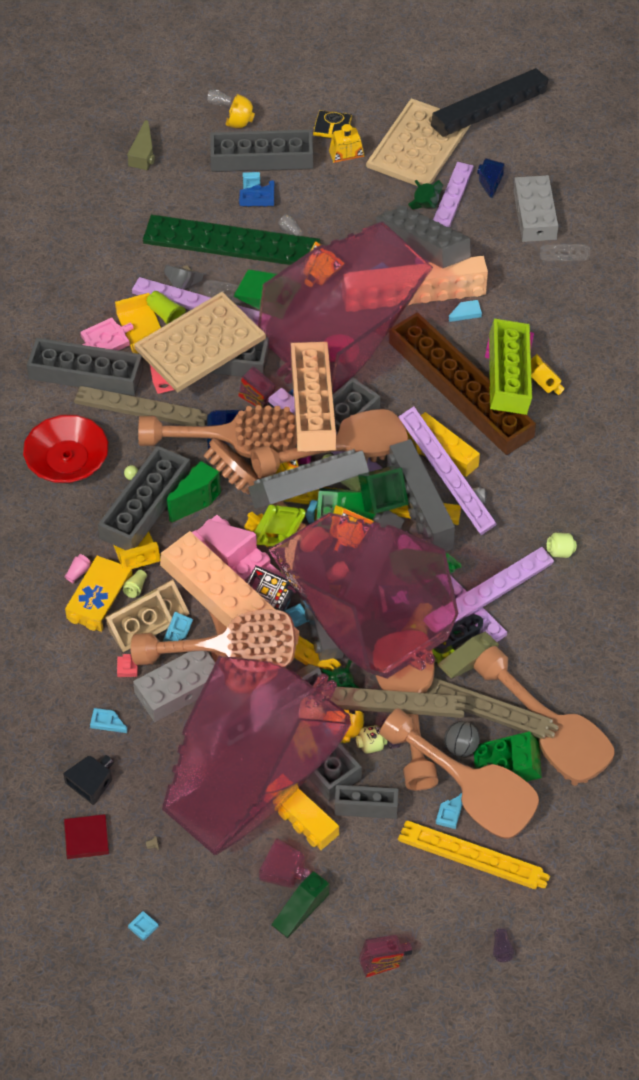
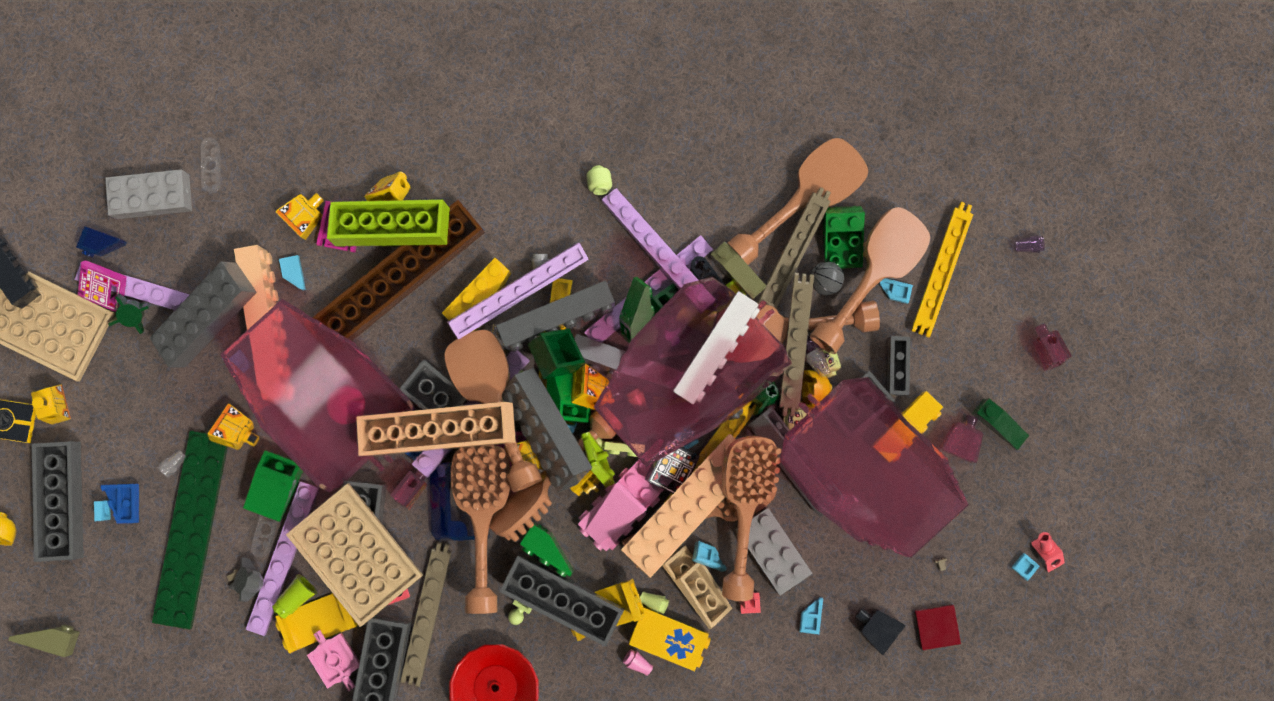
camera: 90 degrees left, 30 degrees up
(158, 944) = (1048, 551): none -> coral bracket
(371, 719) = (818, 362): none -> clear cone
(391, 617) = (716, 348): none -> white brick
(455, 173) = (96, 285): none -> dark pink container
(520, 311) = (302, 214): none -> yellow torso

